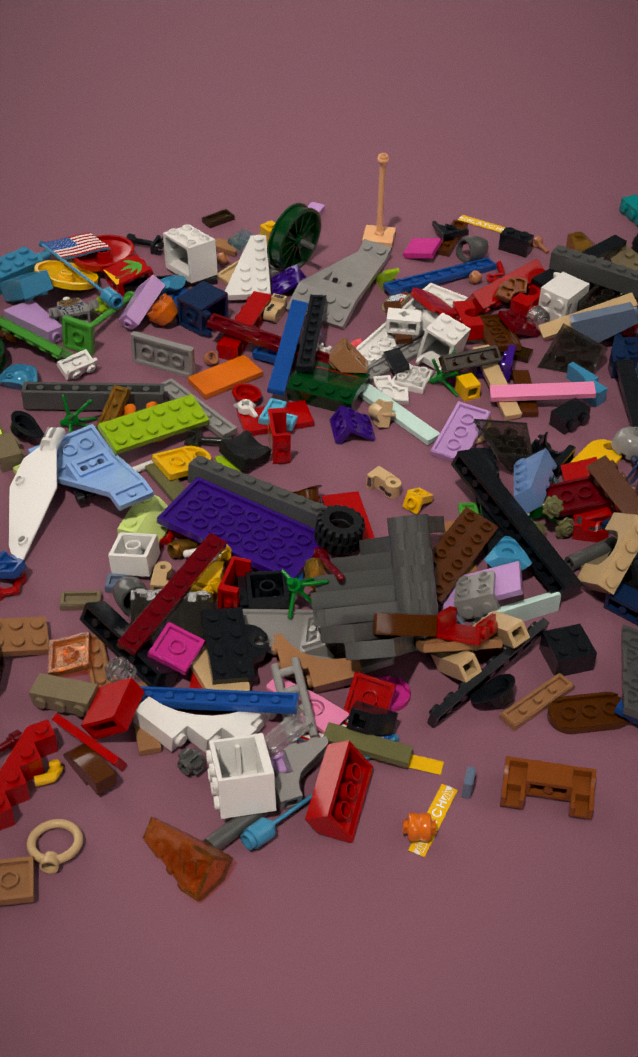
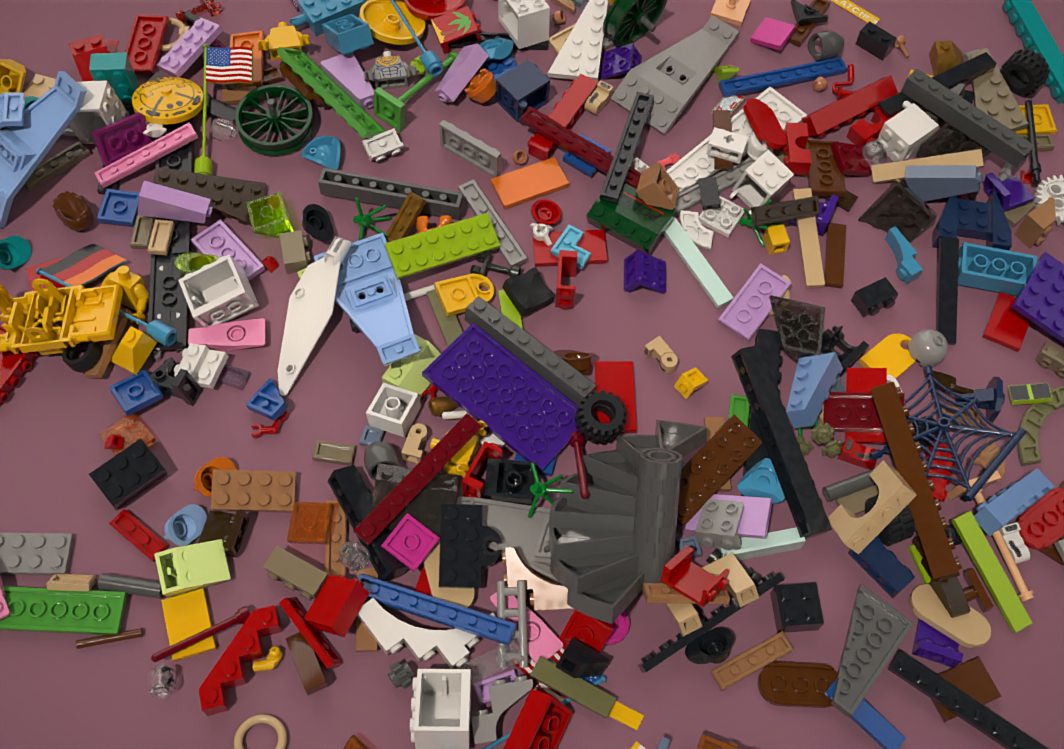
camera: 10 degrees right, 20 degrees up
(287, 348) = (598, 162): blue tile -> none
(312, 568) = (565, 463): clear yellow brick -> none
(381, 413) = (678, 263): tan piece -> none
(405, 624) = (634, 573): reddish brown slope -> none
(511, 287) = (853, 111): dark orange tile -> none
(542, 391) = (853, 263): bright pink tile -> none

